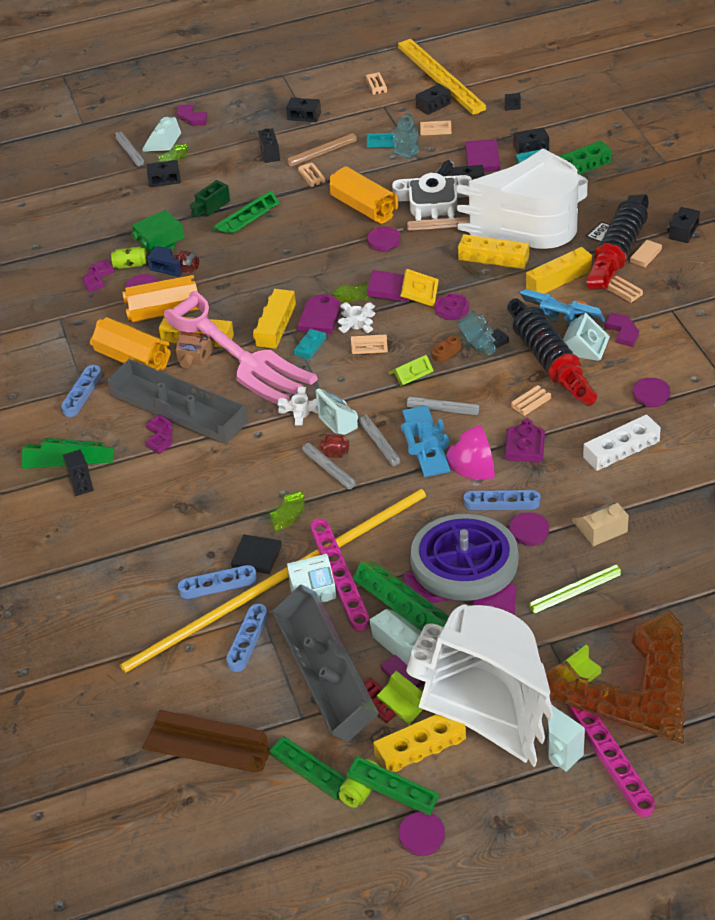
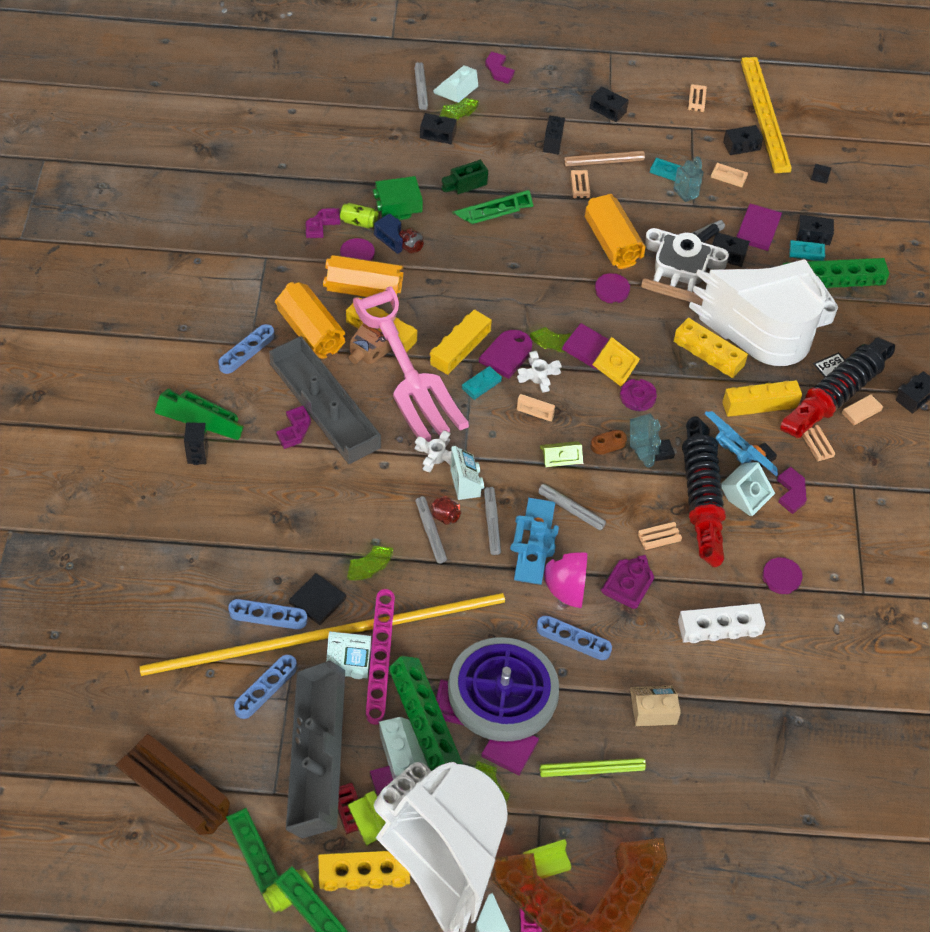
camera: 15 degrees right, 10 degrees up
(529, 528) = (583, 681): magenta tile -> none

